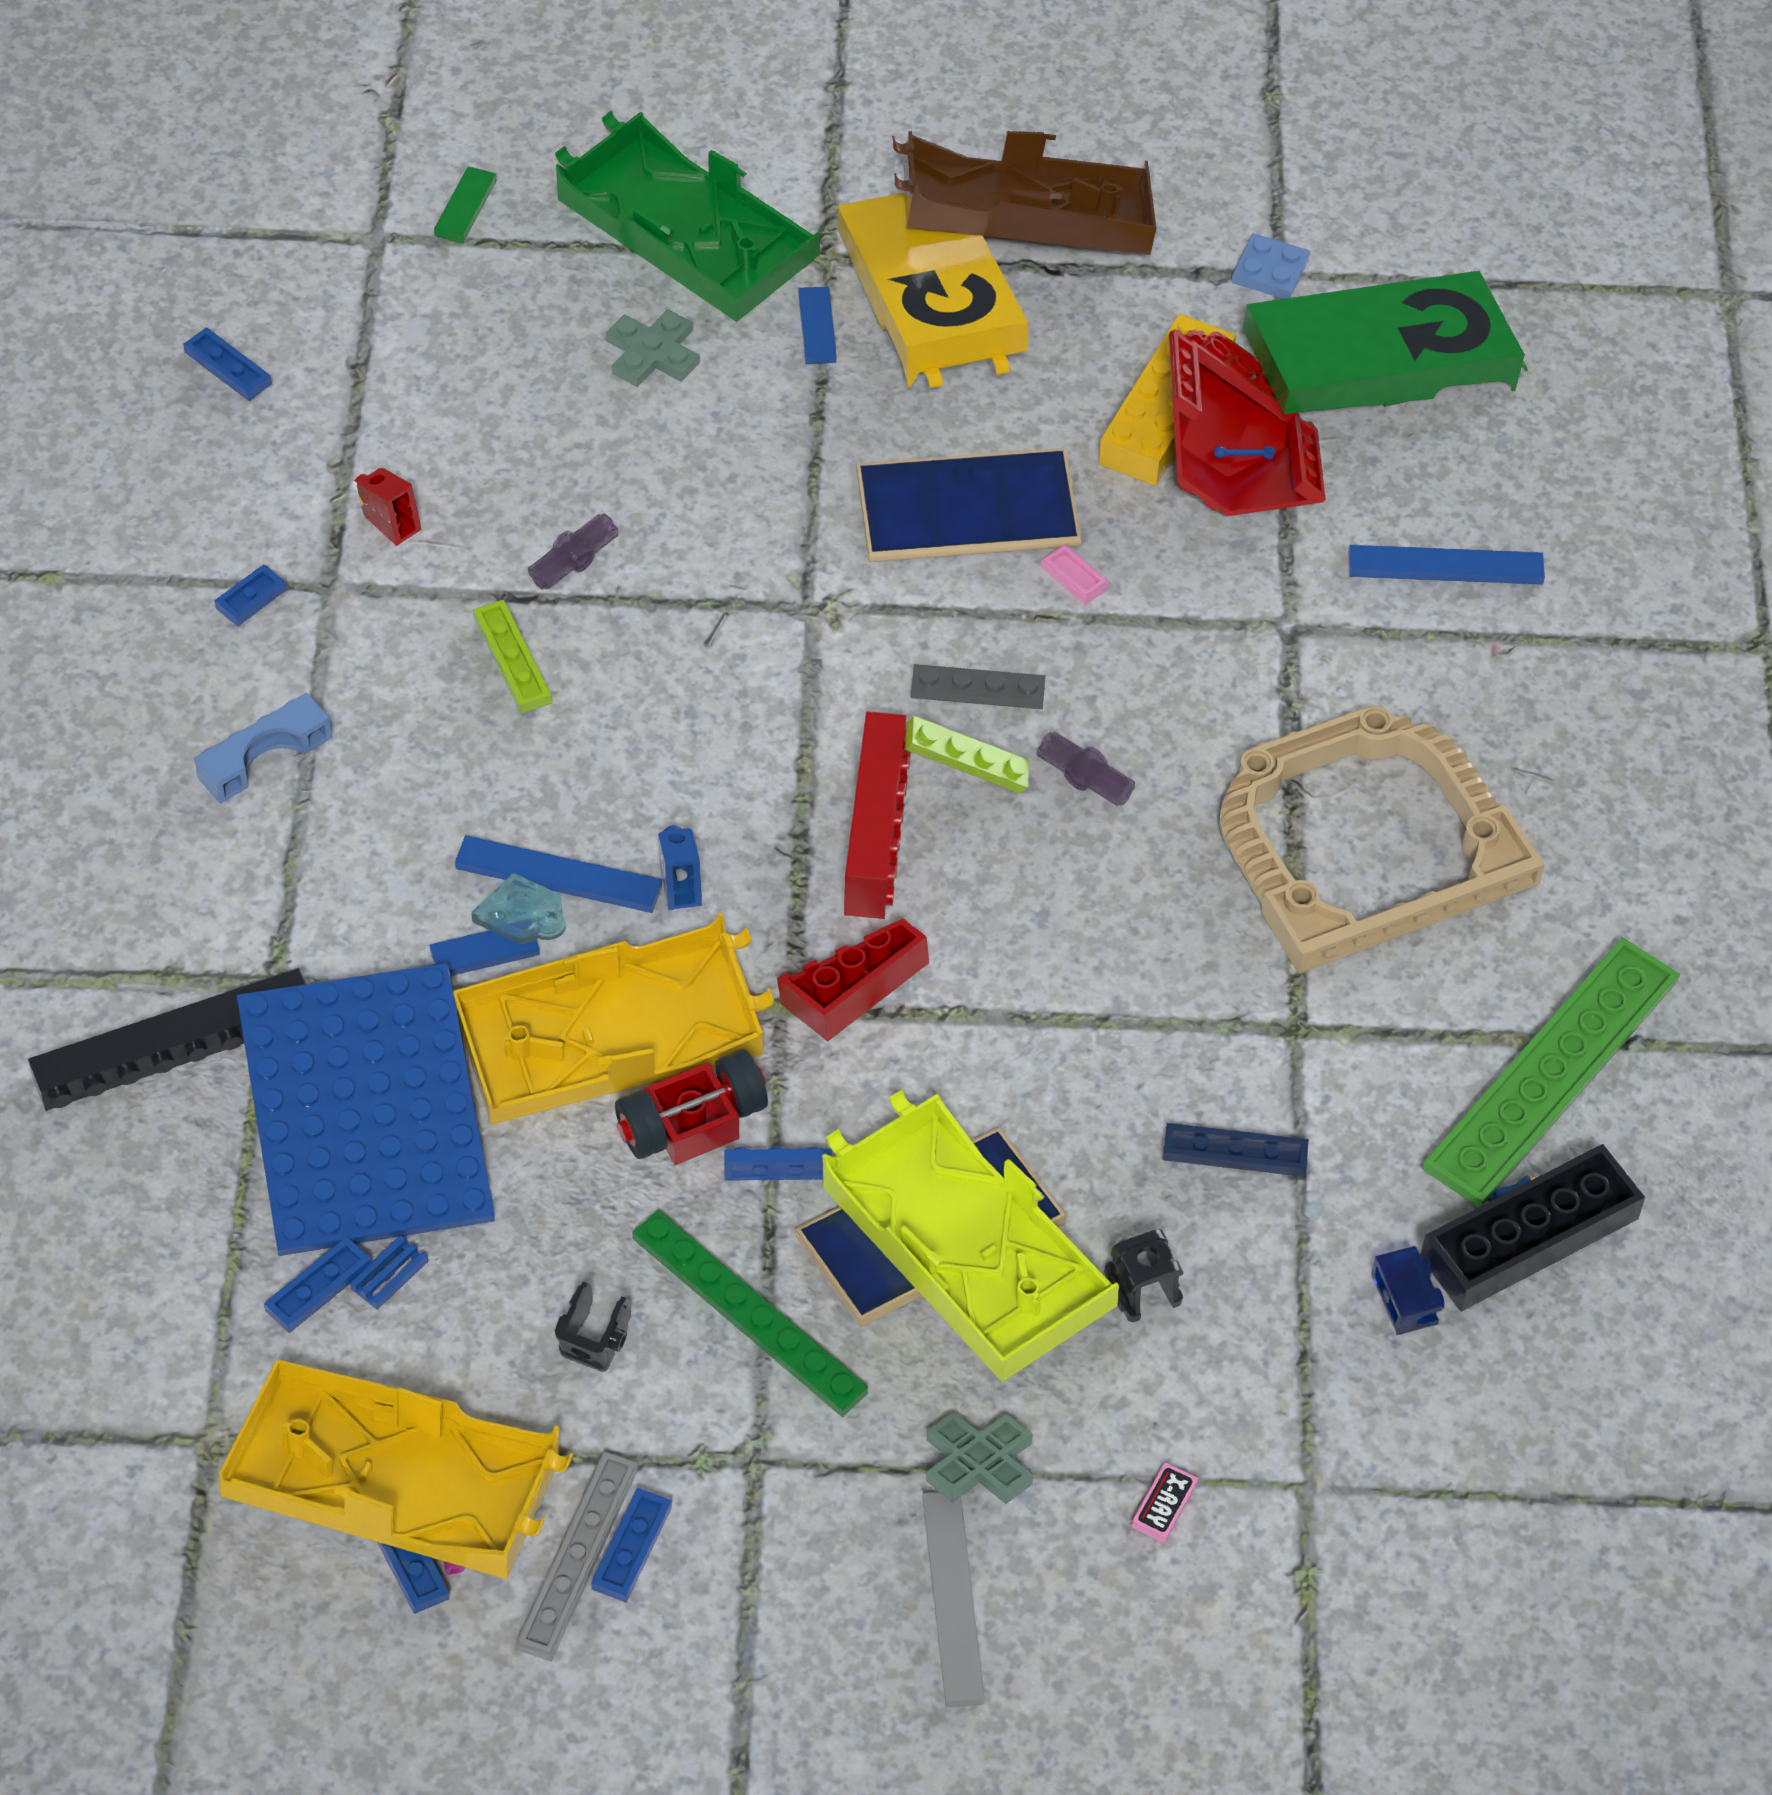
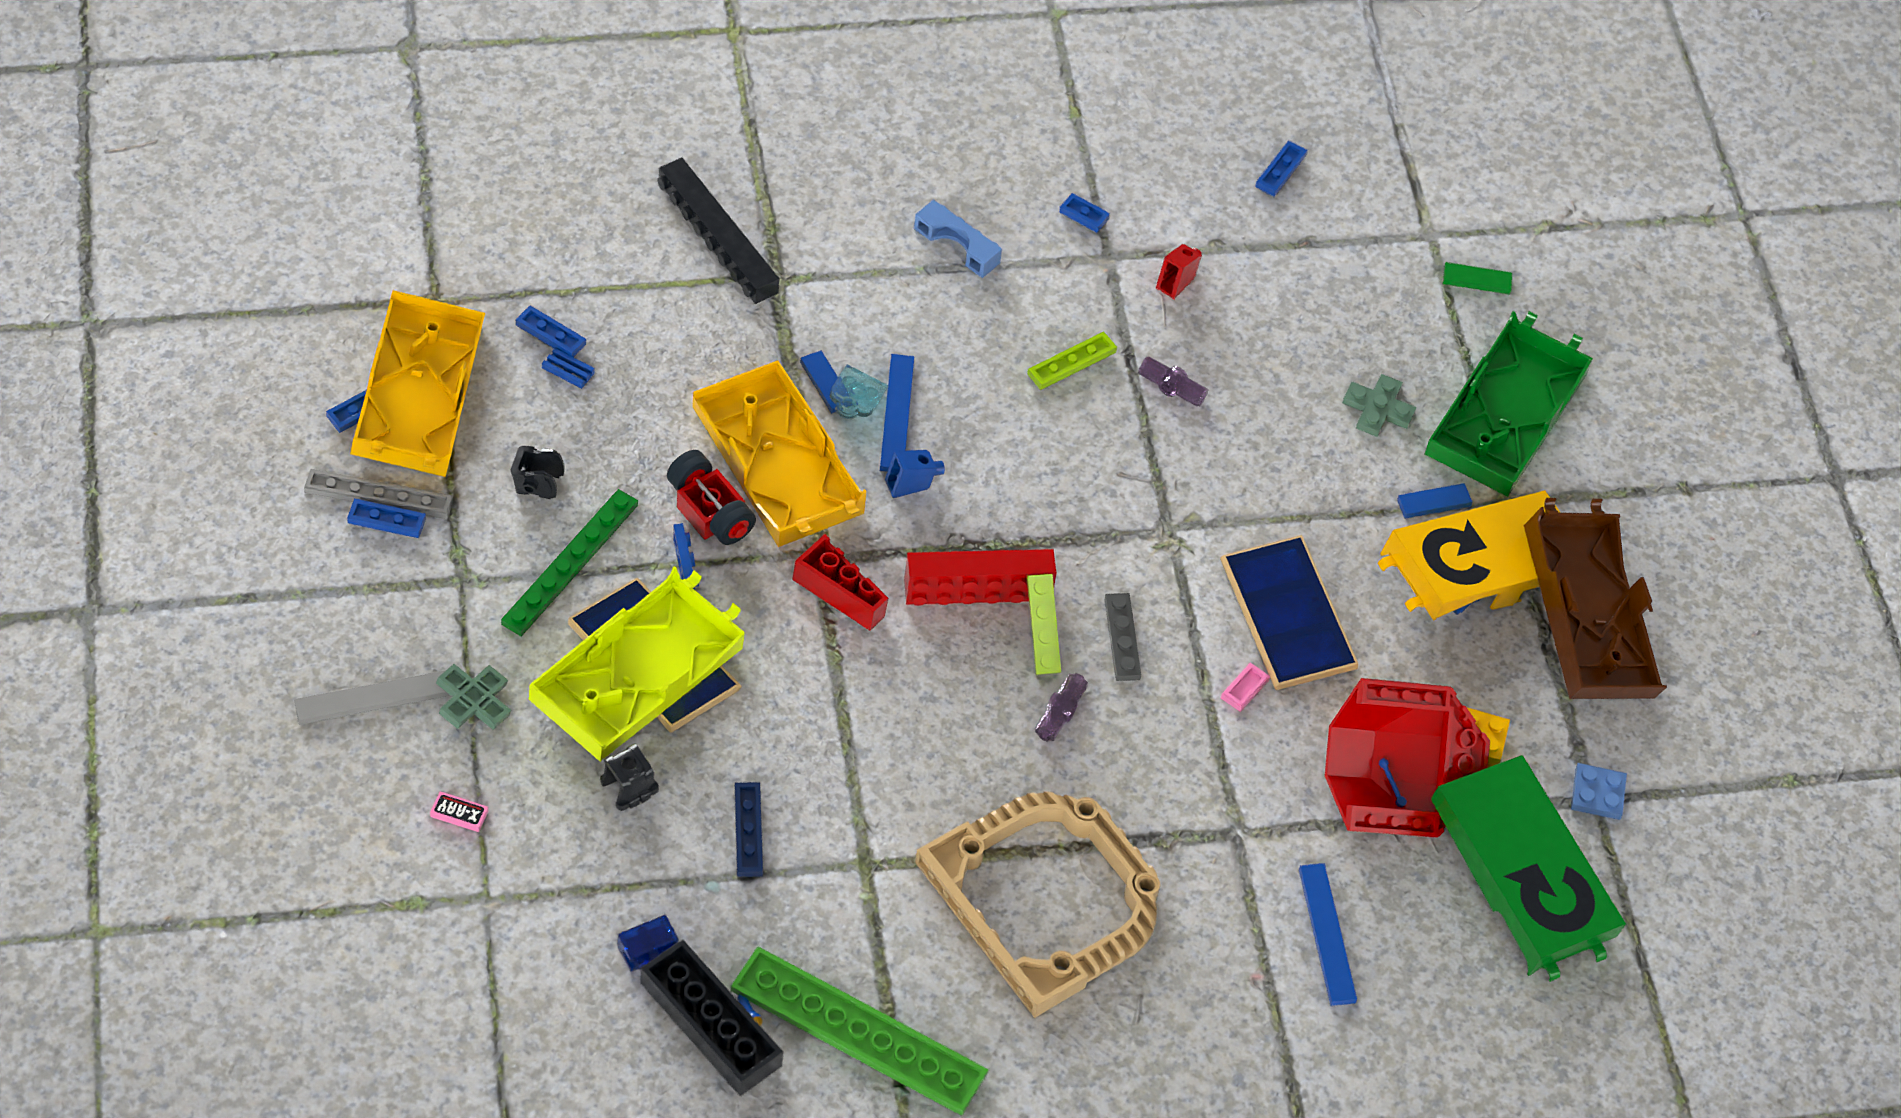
camera: 75 degrees right, 0 degrees up
(364, 1109) = (682, 331): blue plate -> none

